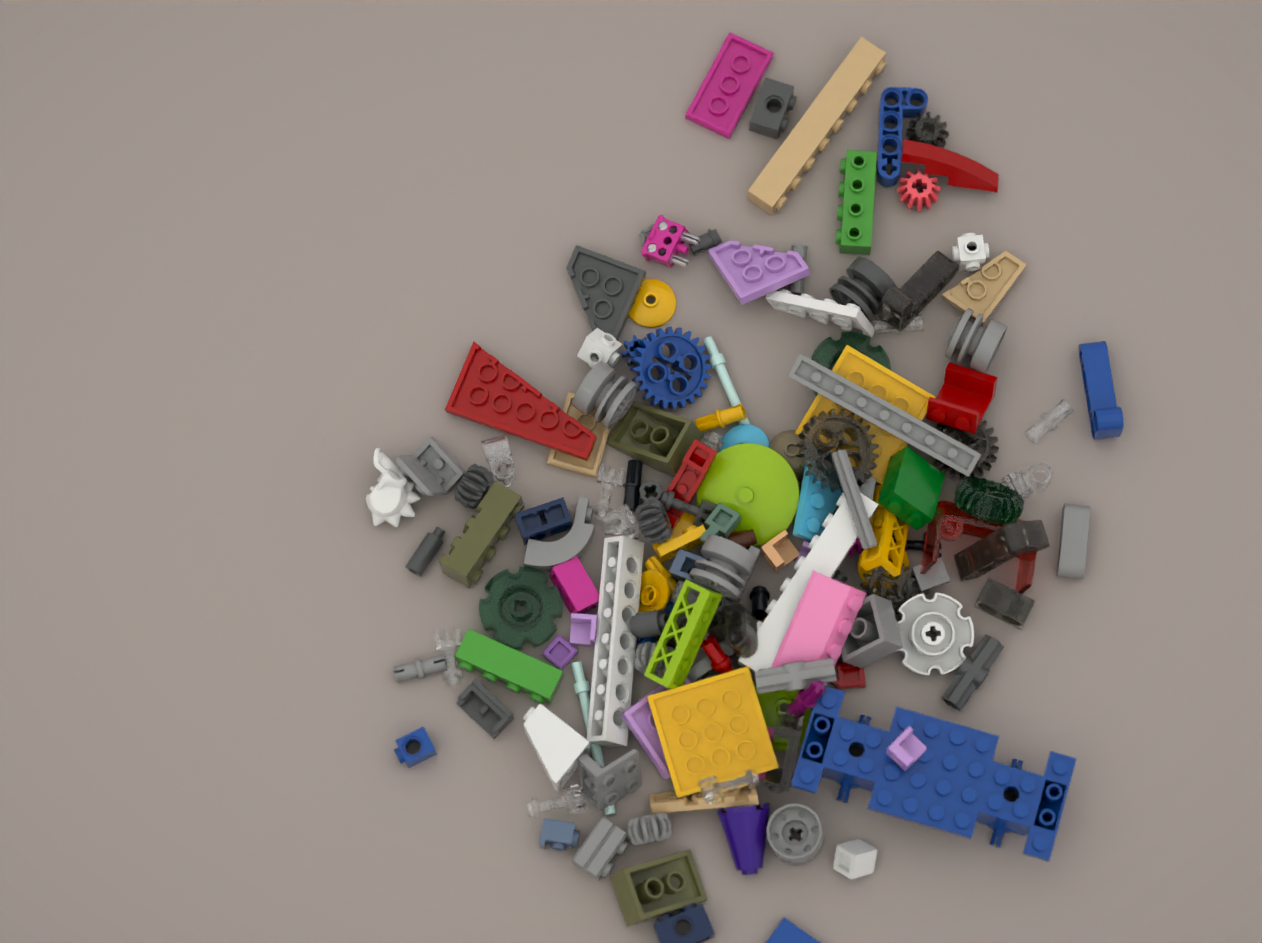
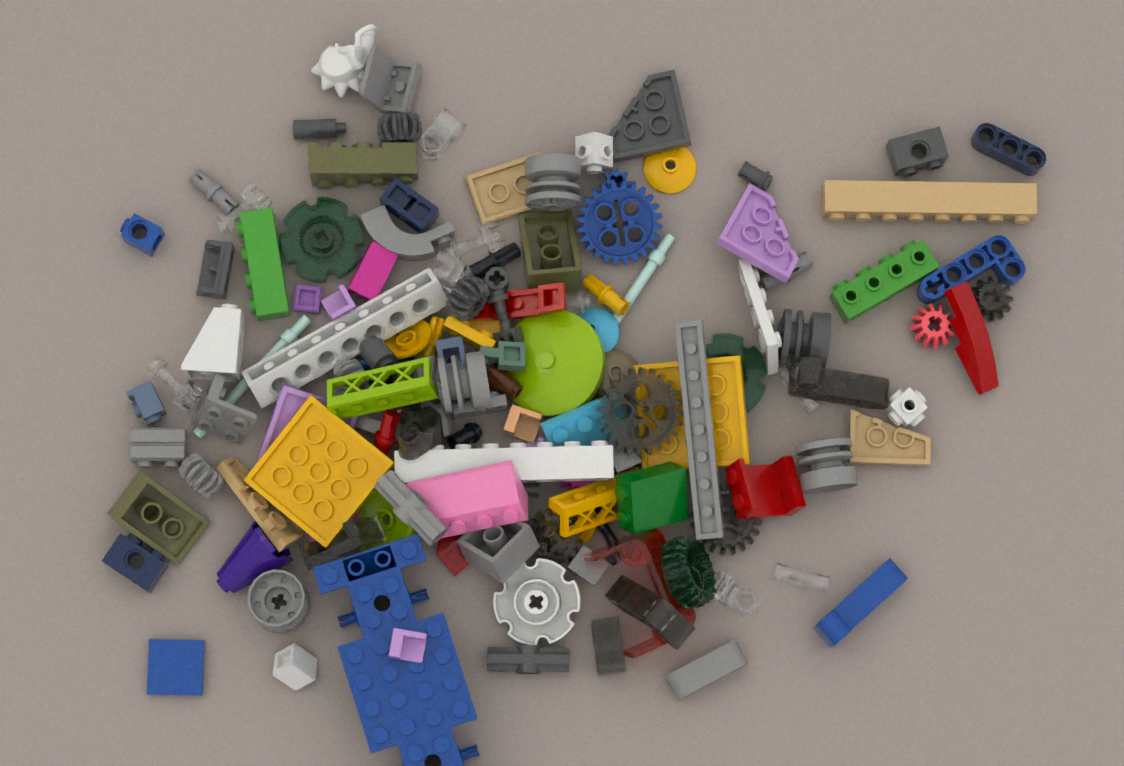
camera: 45 degrees right, 5 degrees up
(506, 402) = (493, 103): red wing -> none
(667, 242) = (730, 143): dark pink piece -> none
(713, 790) = (267, 504): clear hinge -> none
(729, 85) = (913, 102): dark pink tile -> none
(806, 698) = (396, 530): magenta axle -> none
(823, 30) = (995, 150): none -> dark blue beam
(854, 499) = (601, 453): light grey axle -> none

